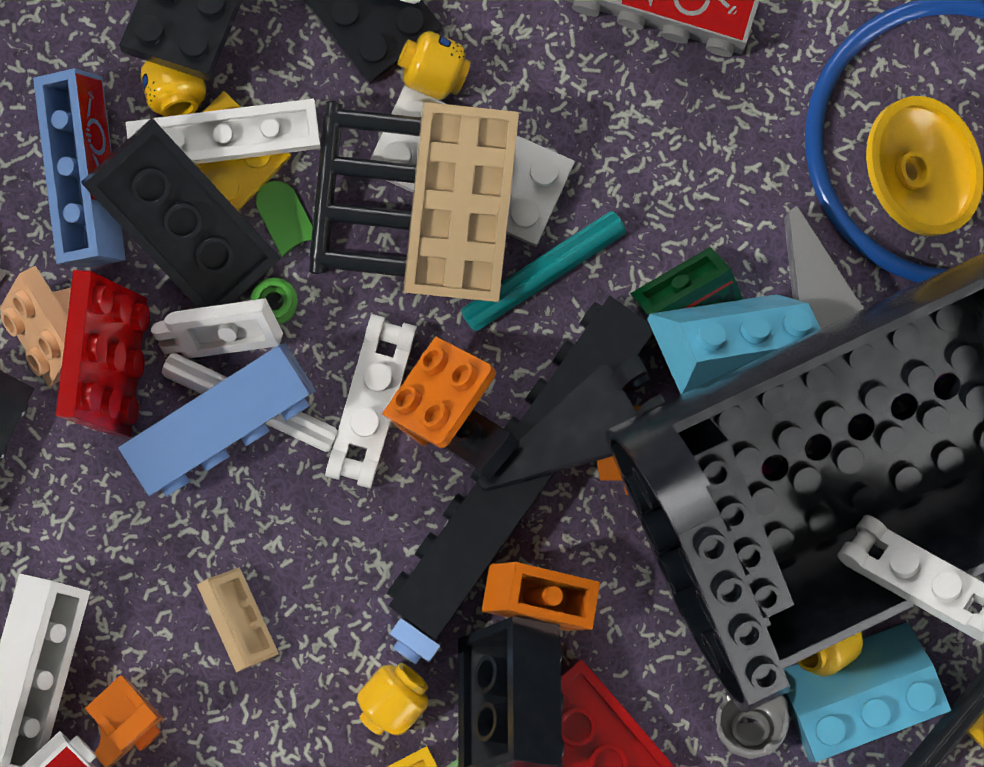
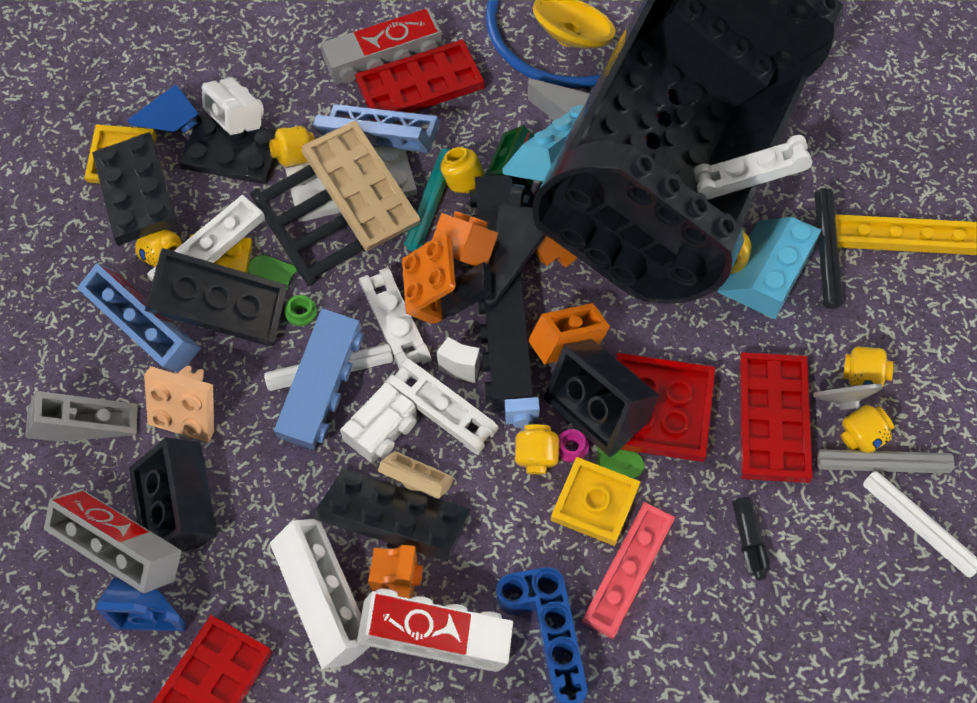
camera: 30 degrees left, 20 degrees down
(102, 355) = (225, 386): red plate -> none
(173, 649) = (393, 514): none -> black plate
(218, 329) = (281, 338): white hinge -> none
(247, 525) = (380, 423): none -> white brick
(331, 559) = (443, 405): none -> white plate
(394, 522) = (459, 360): none -> white piece
(433, 740) = (576, 437): none -> dark pink plate
(524, 379) = (469, 237): none -> orange brick
(537, 127) = (383, 132): none -> medium blue fence
(606, 269) = (460, 169): none -> yellow head
(668, 86) = (421, 79): none -> red plate
(756, 738) = (726, 306): light grey hair -> none

